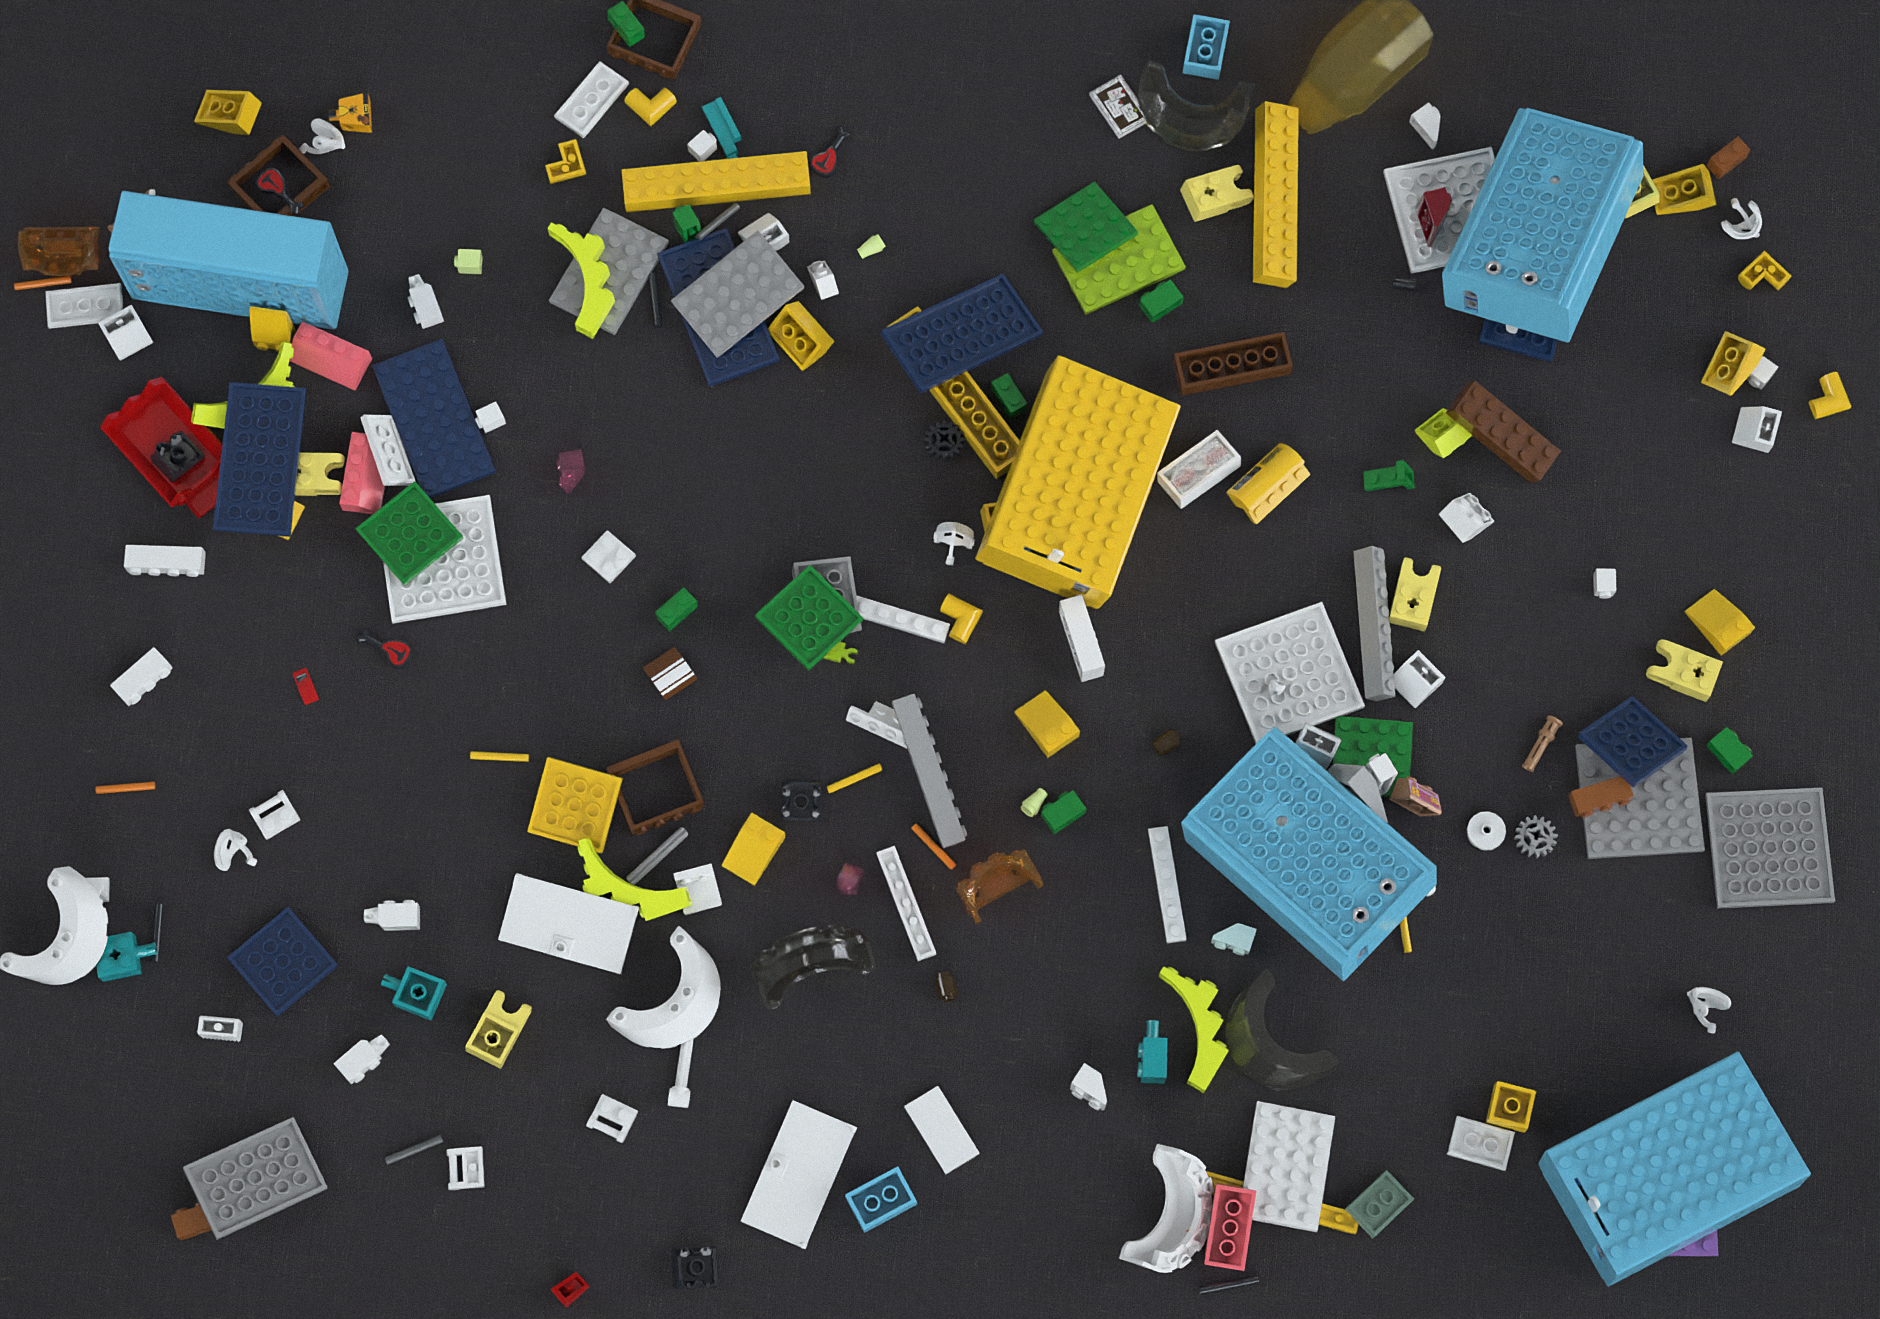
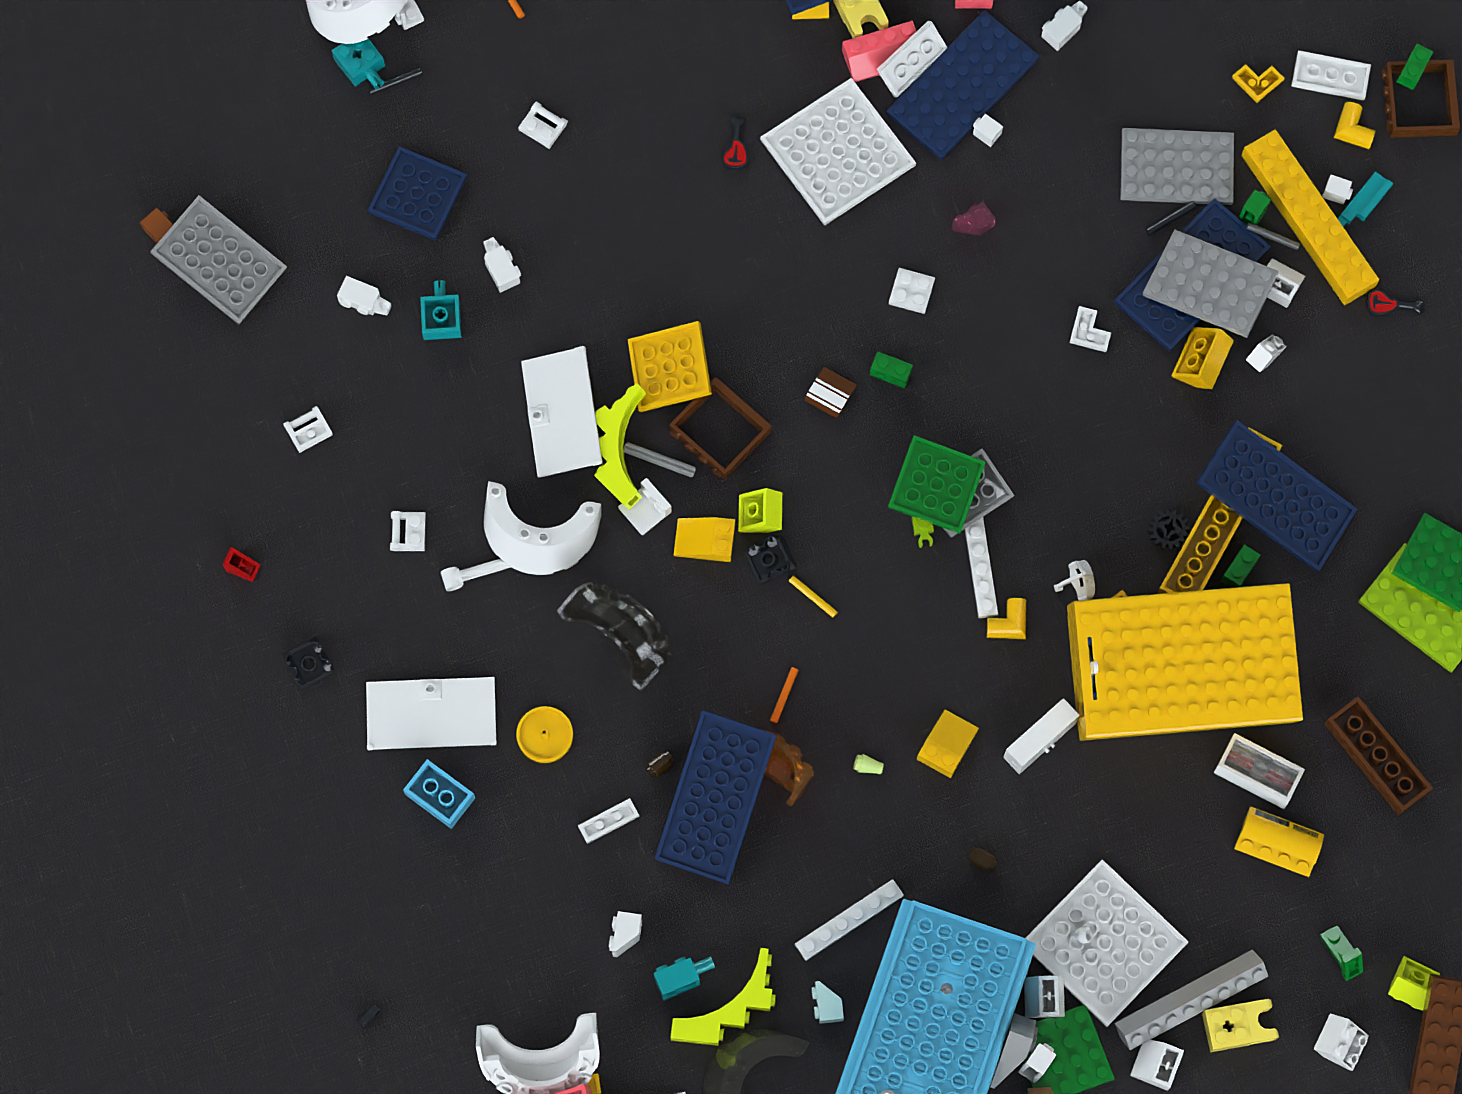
camera: 65 degrees right, 0 degrees up
(220, 1028) = (334, 170): white brick -> none
(223, 855) = (487, 101): white helmet -> none
(305, 686) = (668, 95): red sticker -> none
(409, 533) = (845, 112): green plate -> none
(414, 1149) = (305, 379): dark grey piece -> none
(469, 261) = (1122, 44): yellowish green brick -> none
(497, 1024) = (444, 401): light yellow brick -> none
(499, 756) = (684, 284): yellow bar -> none
(596, 300) = (1142, 165): neon yellow arch -> none
(726, 425) = (1084, 333): none -> white plate
(752, 788) = (760, 511): none -> neon yellow slope
(849, 879) = (716, 633): clear pink slope -> none
(868, 1079) = (544, 734): none -> yellow piece
(871, 246) = (1321, 381): yellowish green cone -> none
(880, 721) = (877, 600): white bracket -> none
(906, 903) = (720, 692): white plate -> none
(928, 770) = (848, 656): light grey brick -> none
(941, 1130) = (528, 820): white tile -> none
(977, 1057) = (608, 821): none -> white plate
(1005, 947) = (715, 796): none -> dark blue plate
(1063, 811) = (871, 795): green brick -> none
(1161, 300) = (1406, 663): green brick -> none

